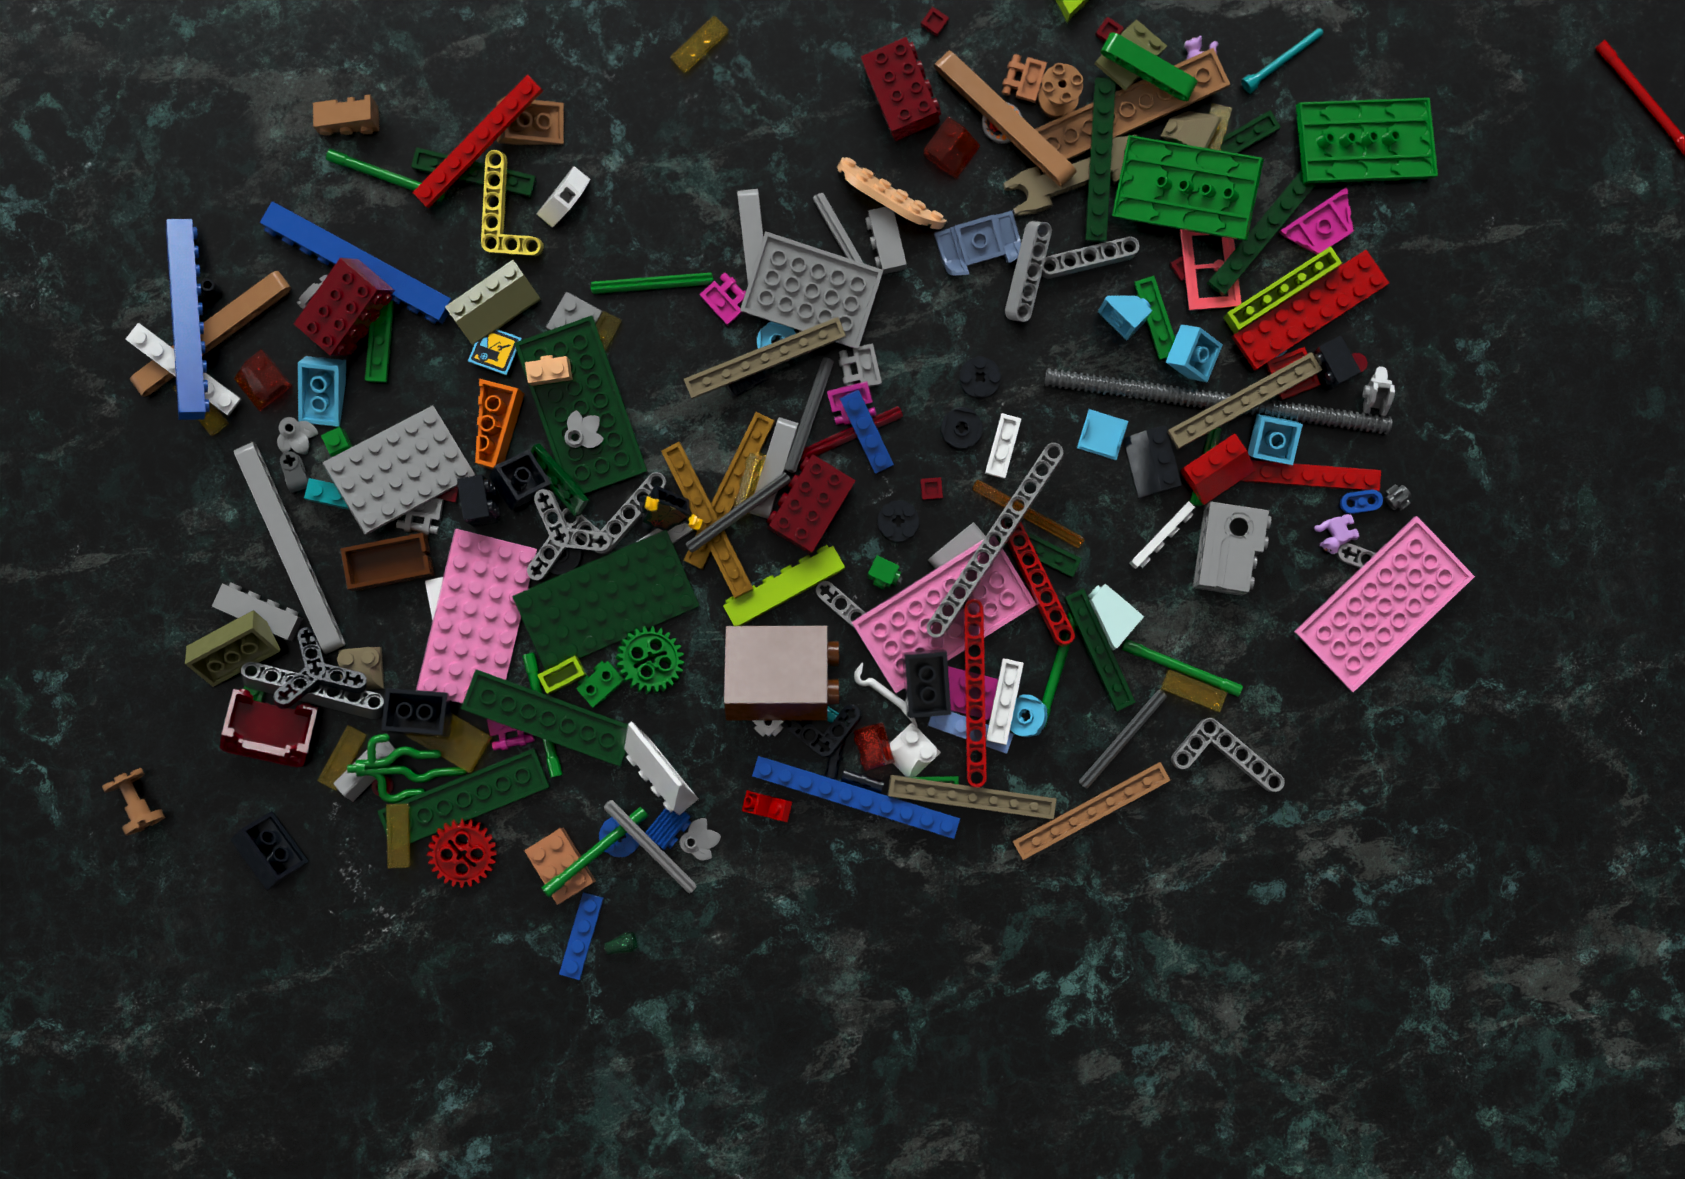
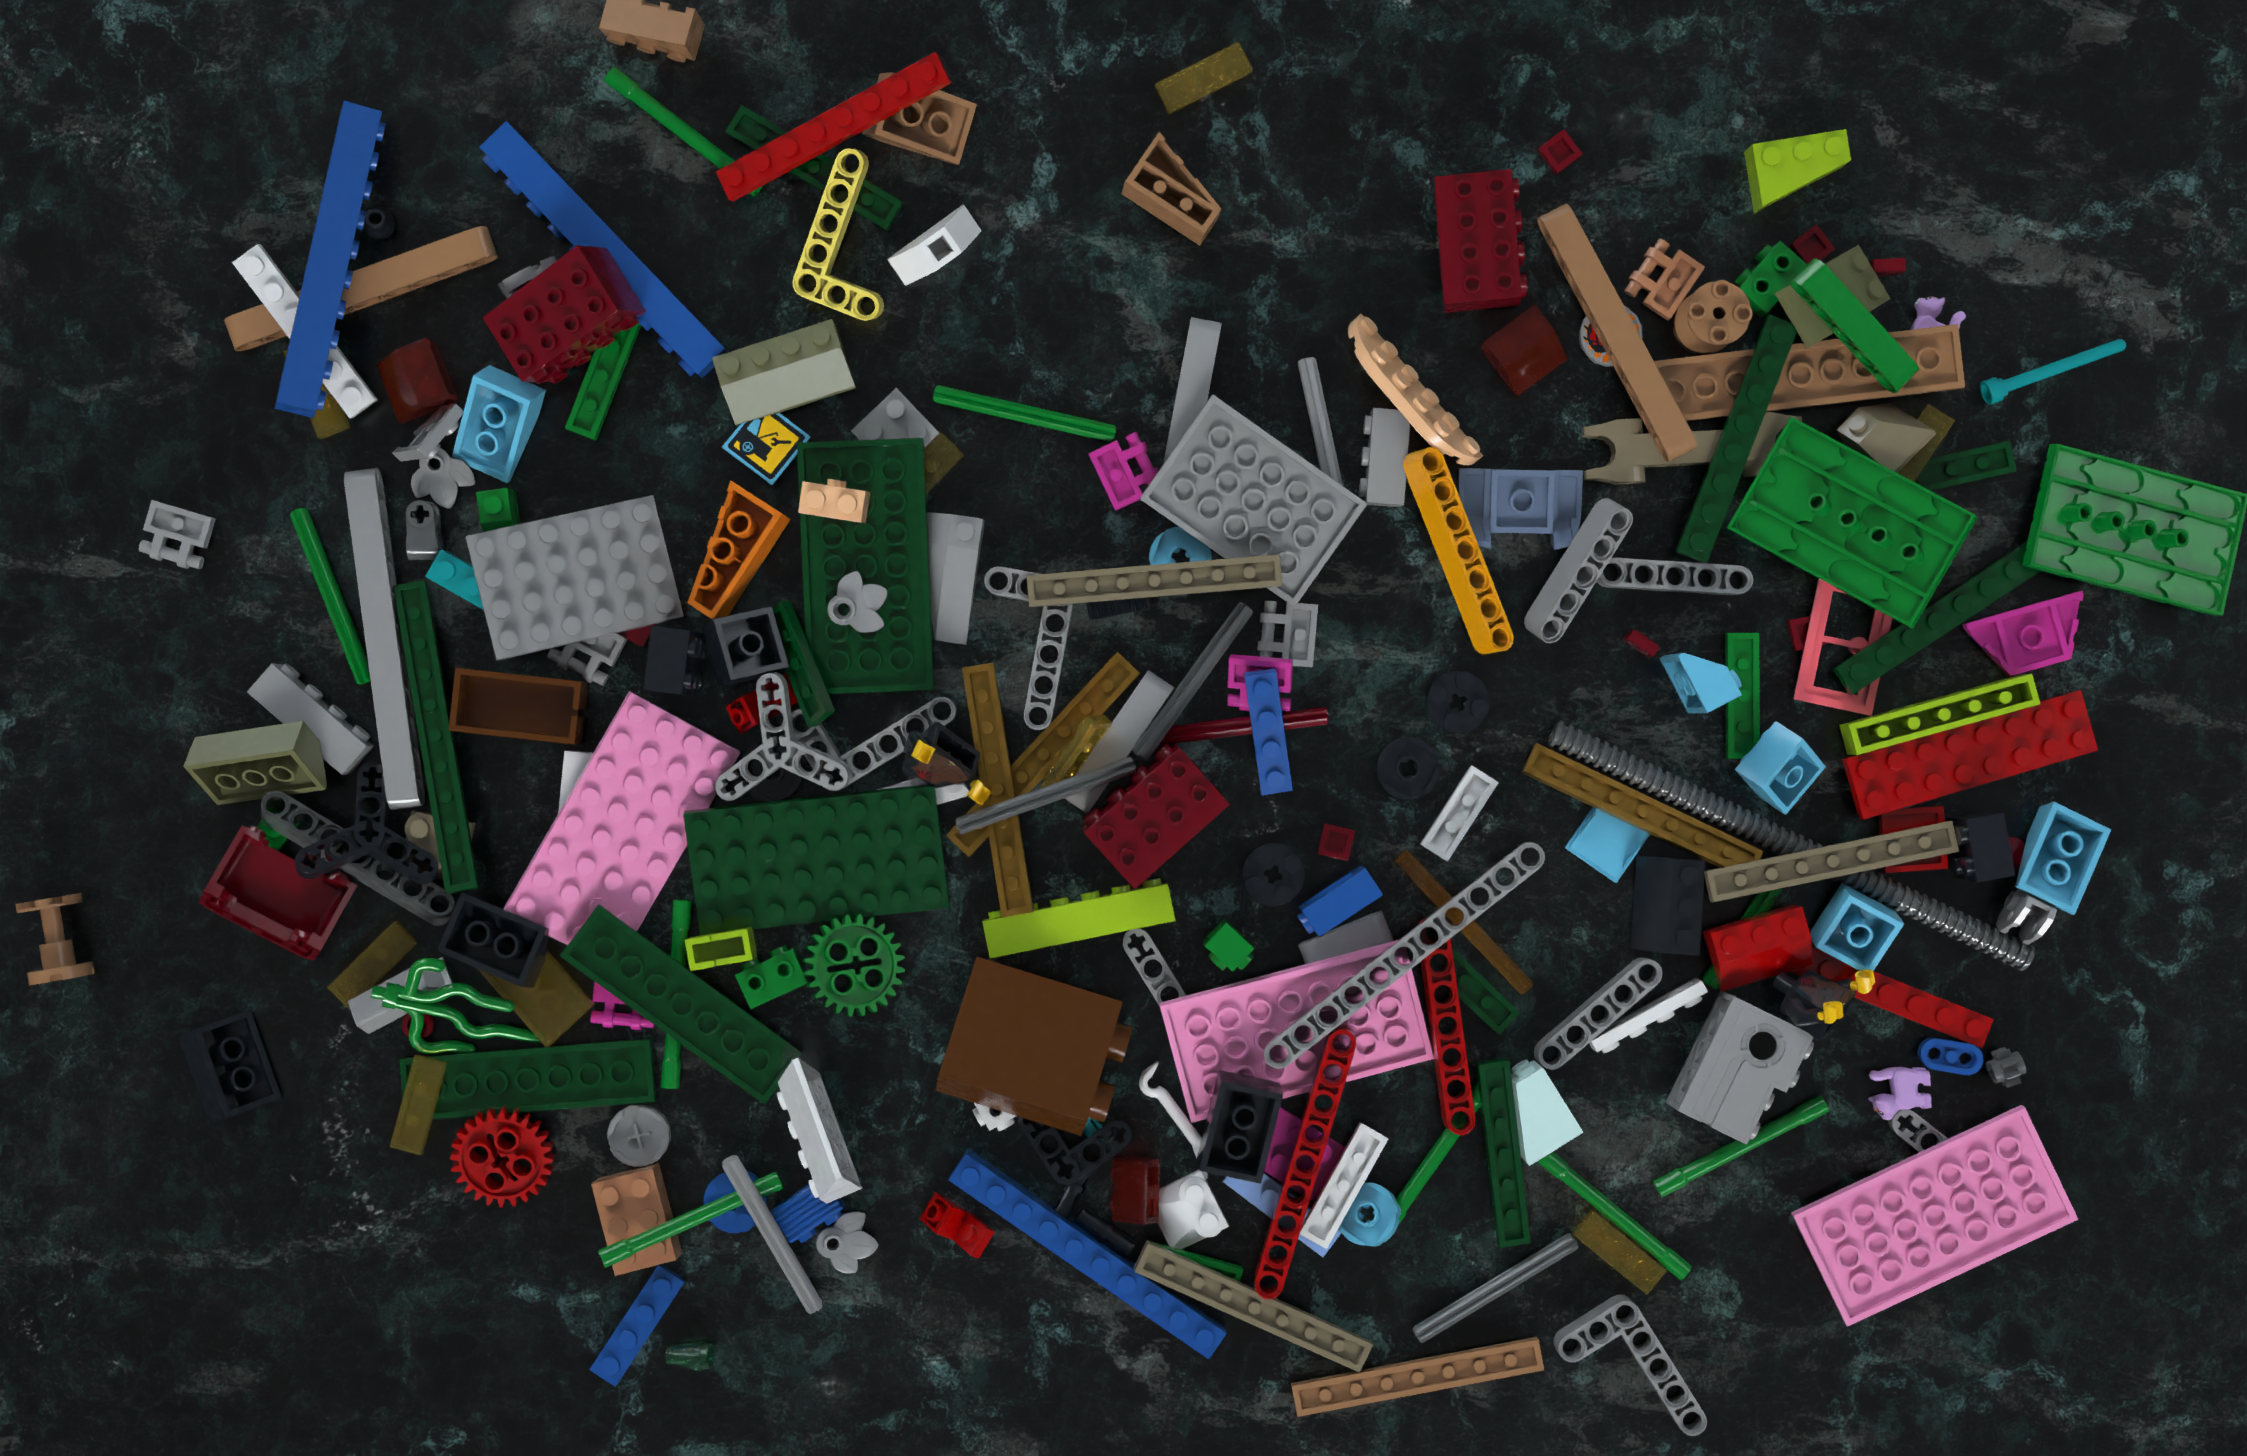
camera: 15 degrees right, 5 degrees up
(138, 516) = (180, 525): none -> light grey plate
(247, 531) = (331, 594): none -> green axle
(281, 409) = (430, 433): none -> light grey wing
(341, 597) = (435, 740): none -> dark green plate
(532, 521) = (745, 710): none -> red slope
(545, 813) = (639, 1135): none -> light grey tile
(636, 390) = (953, 569): none -> light grey wedge
(700, 118) = (1171, 193): none -> medium nougat wedge
(708, 417) = (1045, 638): none -> light grey beam
(944, 522) = (1338, 901): none -> blue window
(949, 282) = (1463, 569): none -> light orange beam
(1082, 304) = (1641, 643): none -> dark red tile
(1088, 54) = (1773, 273): none -> green brick
(1111, 408) = (1637, 809): none -> pearl gold plate
(1132, 533) = (1613, 1010): none -> light grey beam
(1160, 28) = (1888, 267): none -> dark red tile
(1218, 630) = (1682, 1176): none -> green piece
(1266, 490) = (1818, 1002): none -> torso
(1387, 353) = (2060, 856): none -> medium azure slope

